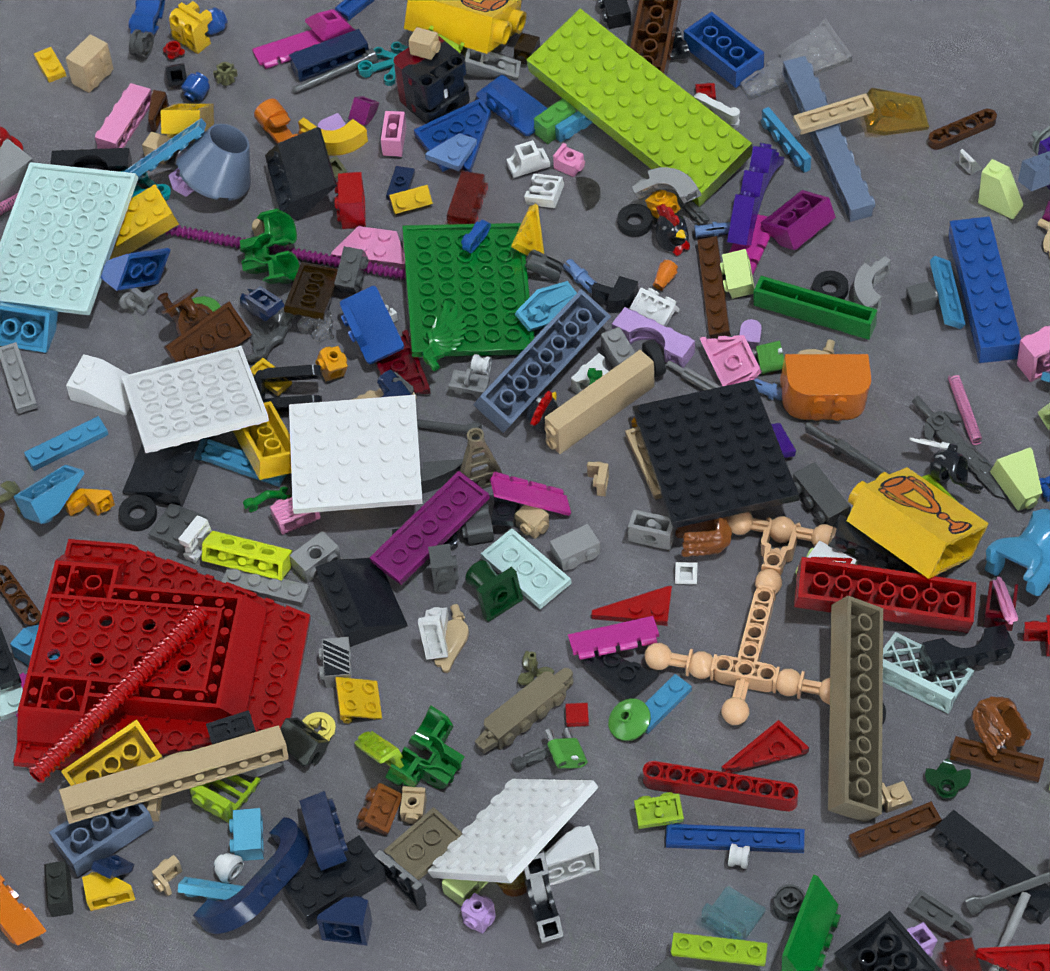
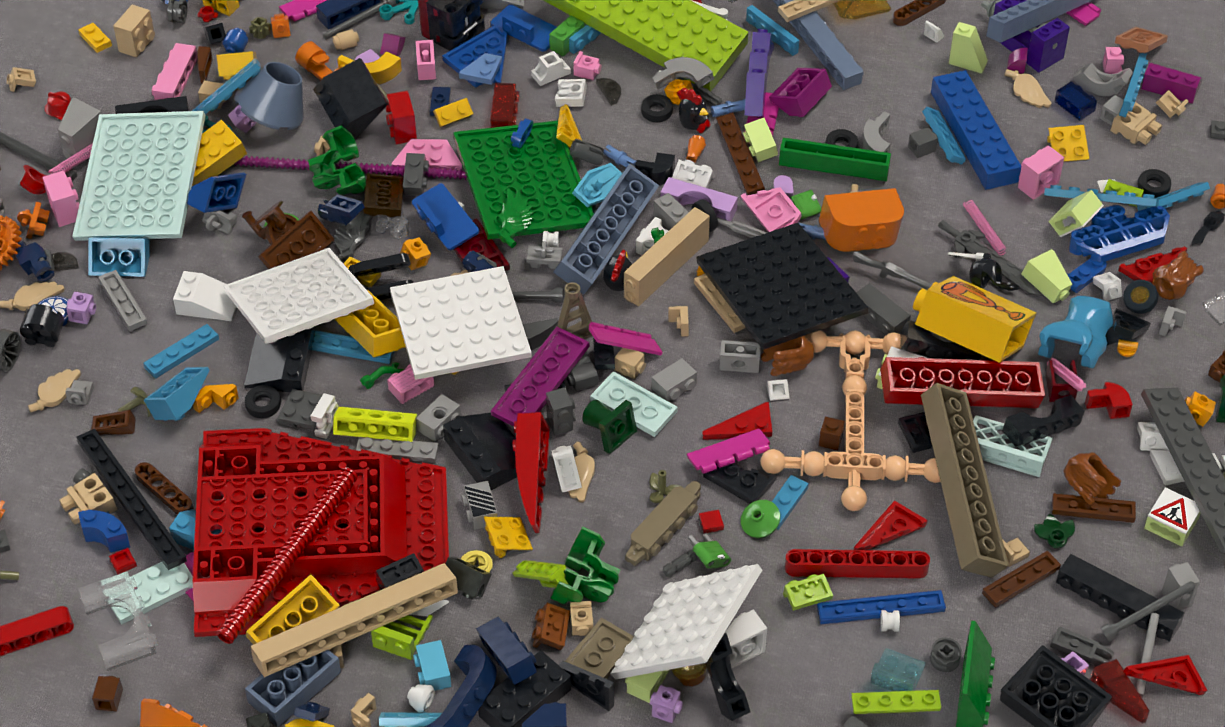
camera: 15 degrees left, 5 degrees down
(247, 73) = (280, 26): none -> orange bracket
(314, 98) = (345, 39): none -> tan brick
(399, 619) = (531, 456): none -> red wedge
(729, 632) = (831, 433): none -> reddish brown brick
(820, 643) = (916, 431): none -> black wing

